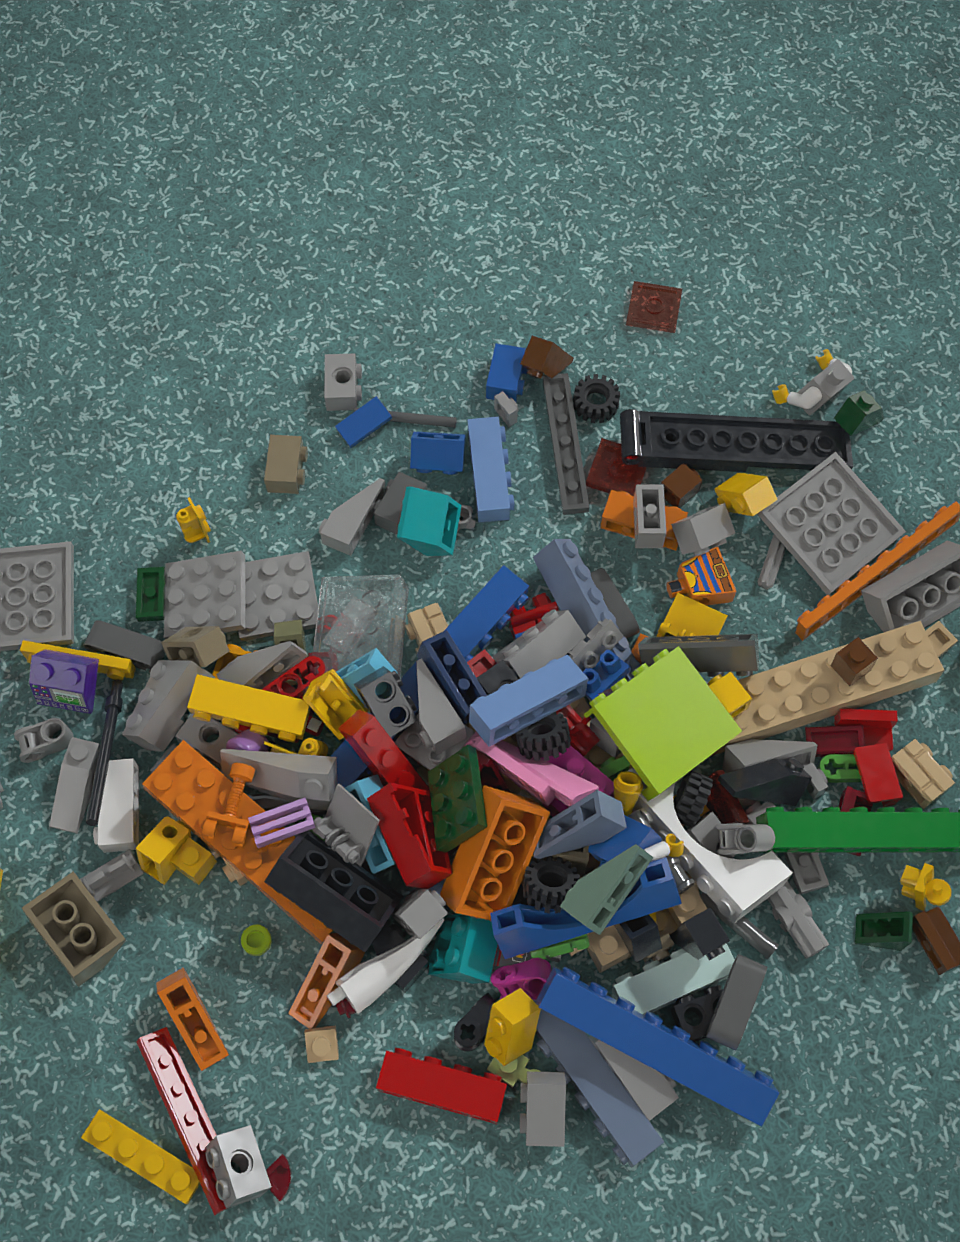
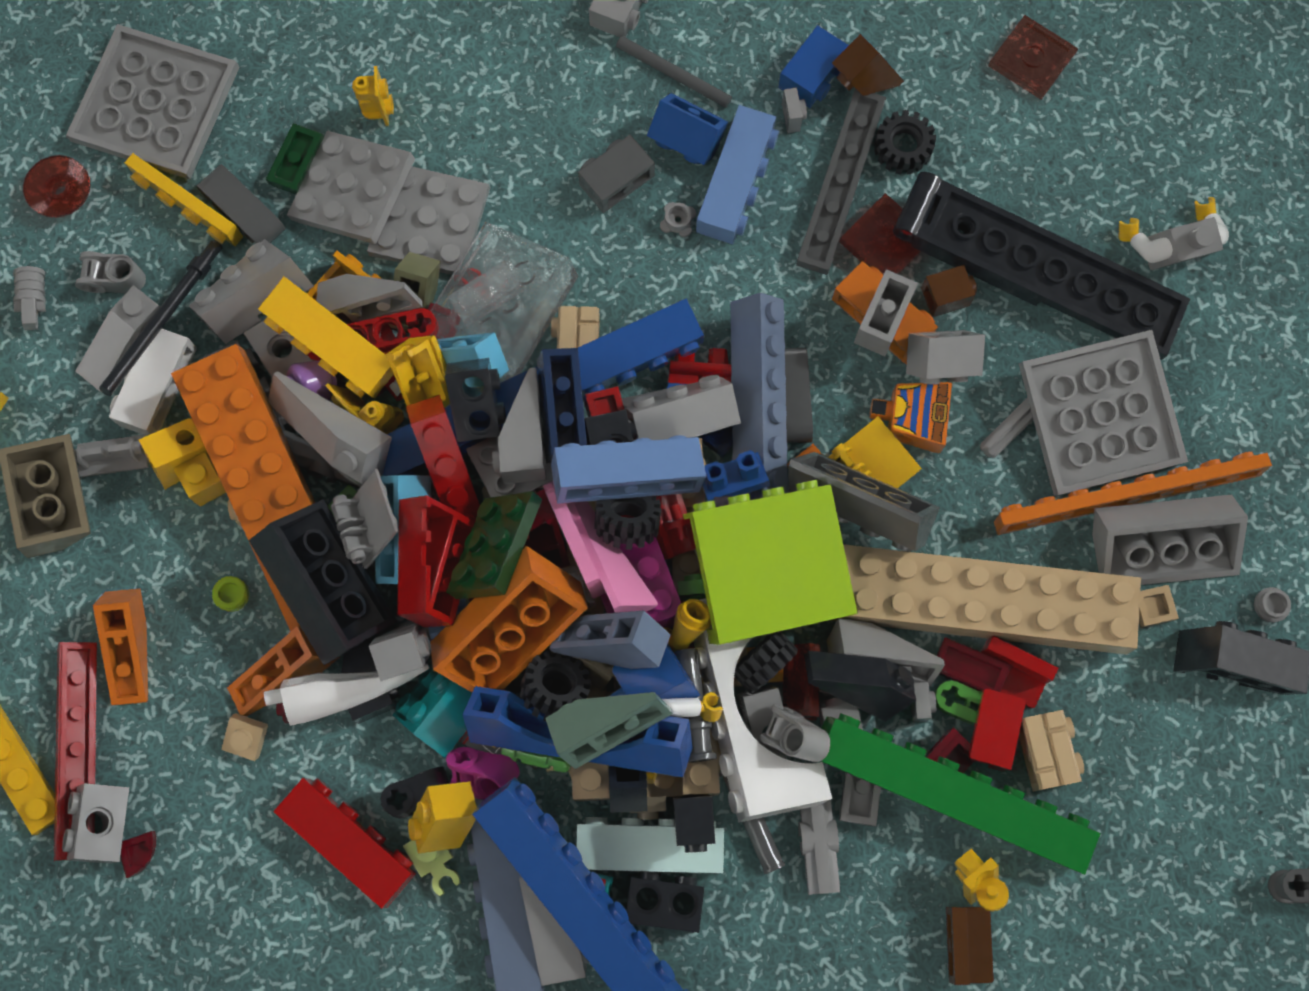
camera: 25 degrees right, 10 degrees up
(64, 680) = (155, 216): dark purple slope -> none
(196, 644) = (309, 241): dark tan brick -> none
(241, 775) = (279, 412): orange bar -> none
(281, 822) = (269, 480): lavender tile -> none
(284, 464) = (510, 70): dark tan brick -> none
(351, 519) = (552, 167): light grey slope -> none
(363, 422) = (622, 57): blue tile -> none
(429, 522) = (633, 208): teal slope -> none
(544, 1108) = (437, 919): light grey brick -> none
(602, 638) = (755, 435): light grey hinge -> none
(730, 693) = (865, 564): yellow brick -> none
(736, 1002) = (698, 908): dark grey beam -> none
(746, 494) = (1016, 334): yellow brick -> none
(854, 661) = (1031, 591): reddish brown brick -> none
(859, 413) = (1207, 294): dark green slope -> none
(884, 930) = (910, 905): dark green slope -> none

